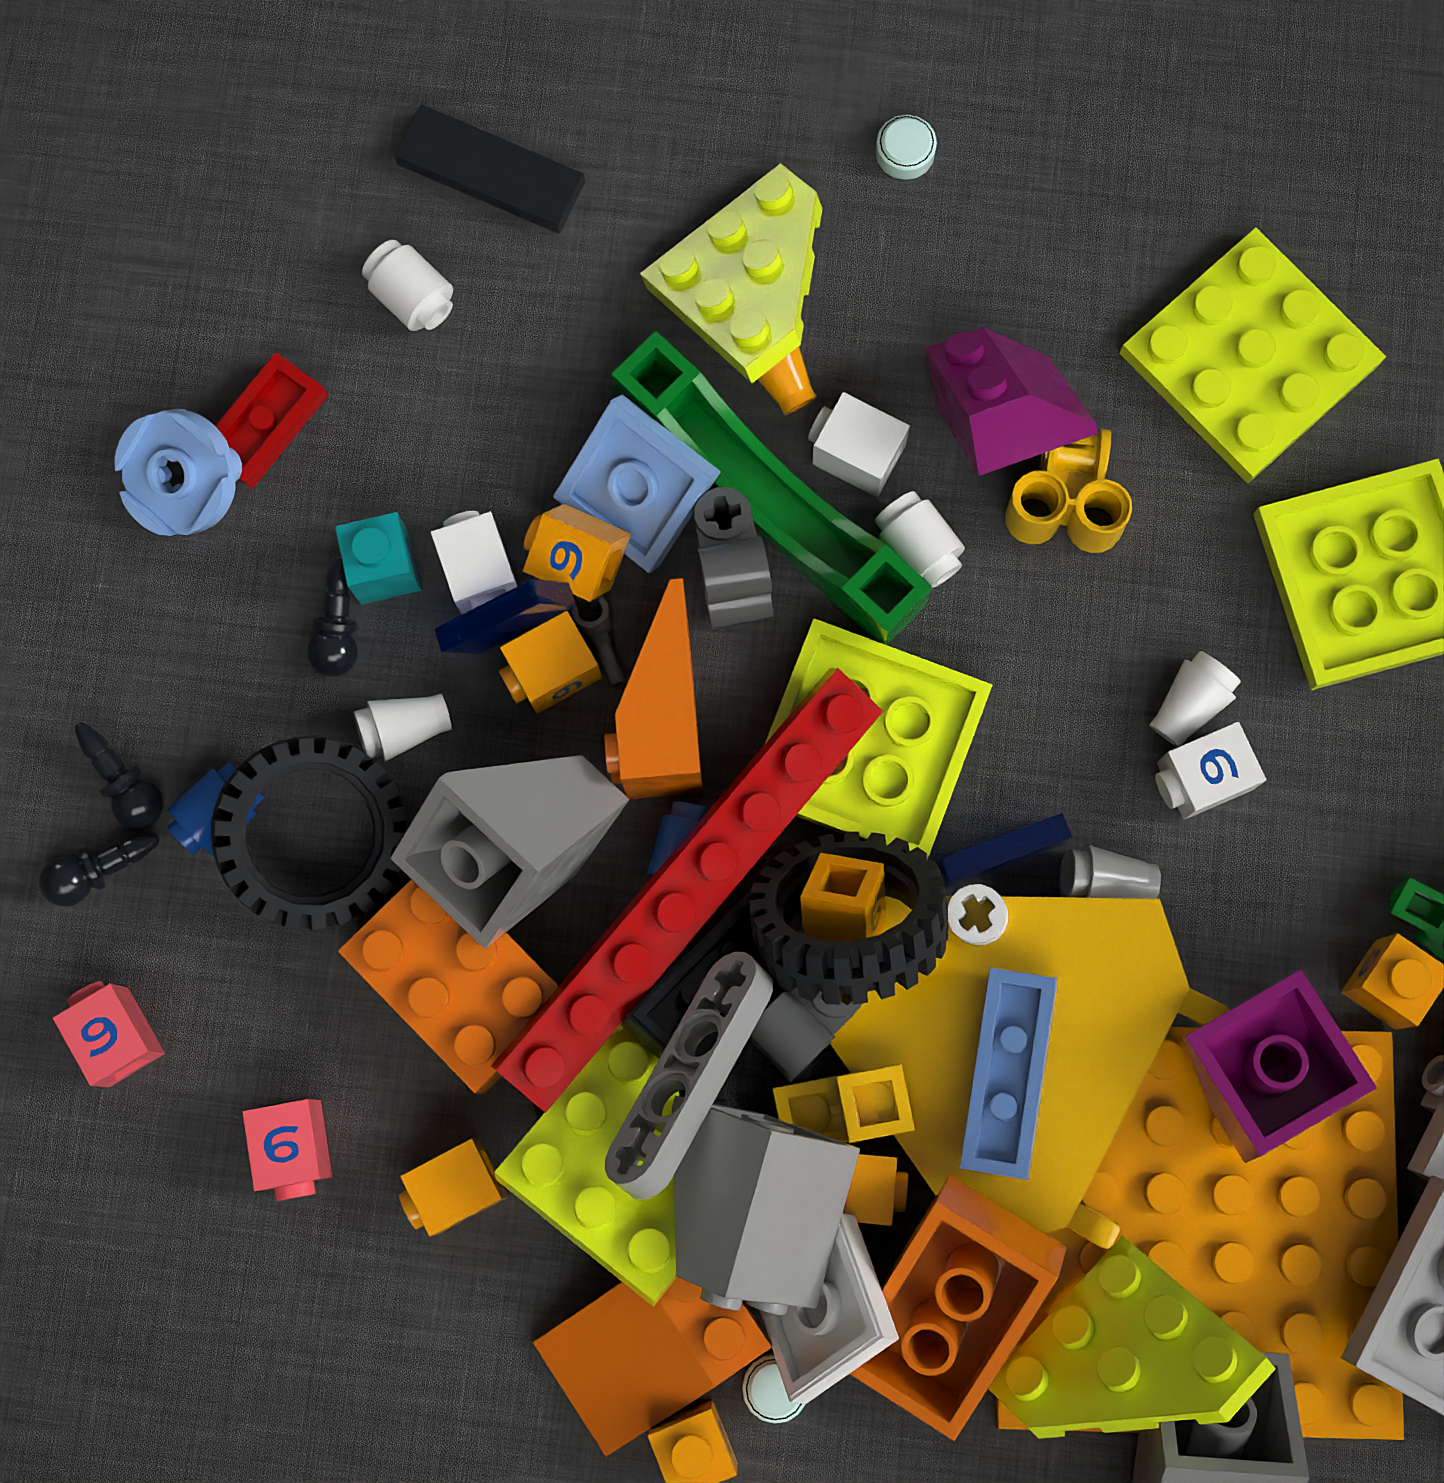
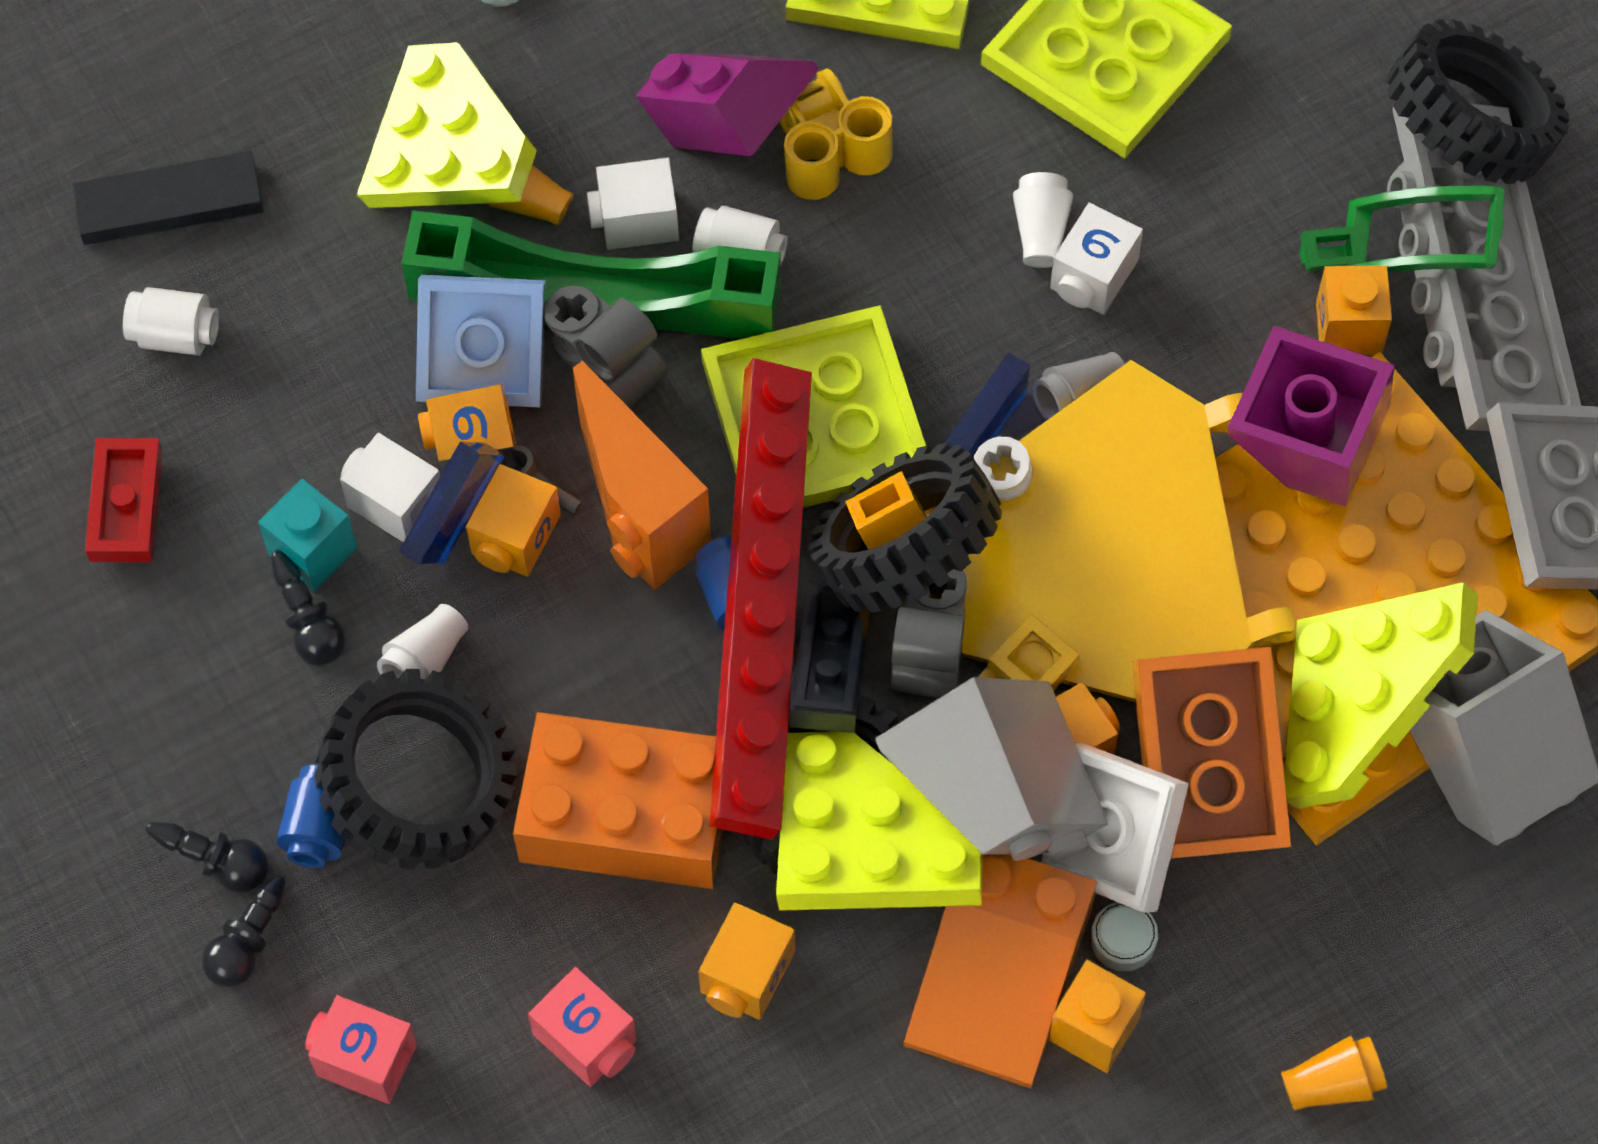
camera: 40 degrees left, 15 degrees down
(207, 465) = (56, 606): light blue plate -> none
(506, 838) = (586, 646): light grey slope -> none
(681, 1070) = (861, 638): light grey beam -> none
(1009, 1073) = (1119, 559): medium blue plate -> none

